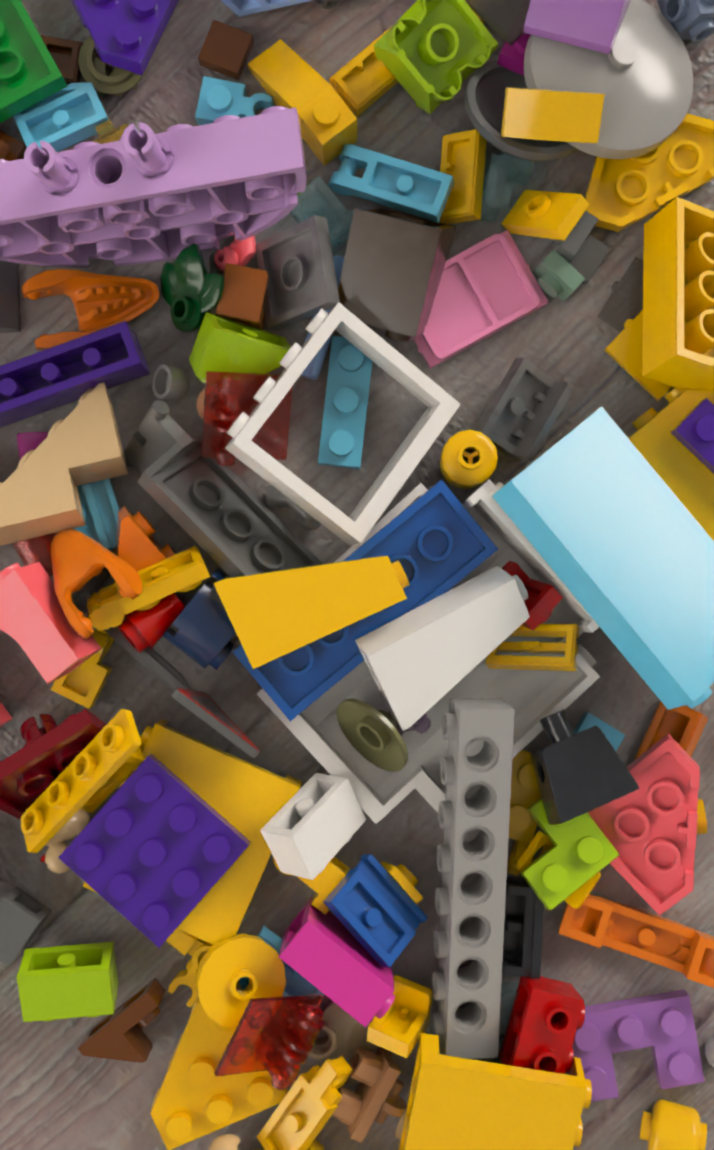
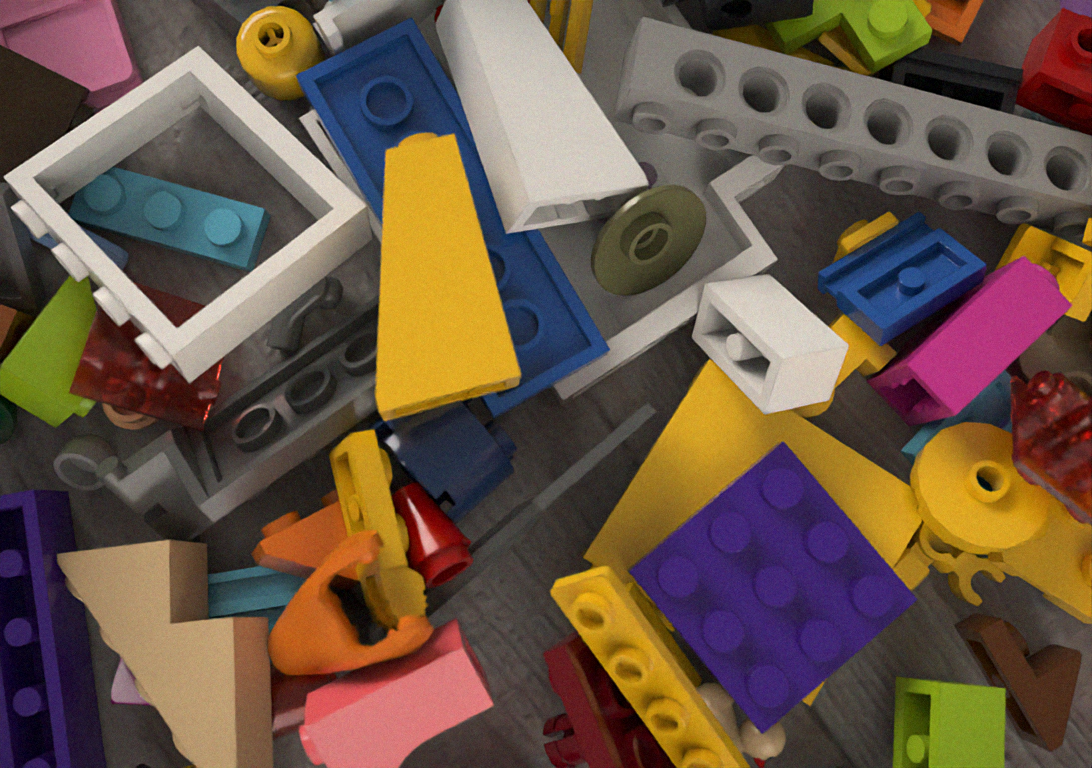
camera: 85 degrees left, 5 degrees down
(89, 678) = (504, 655): yellow plate -> none

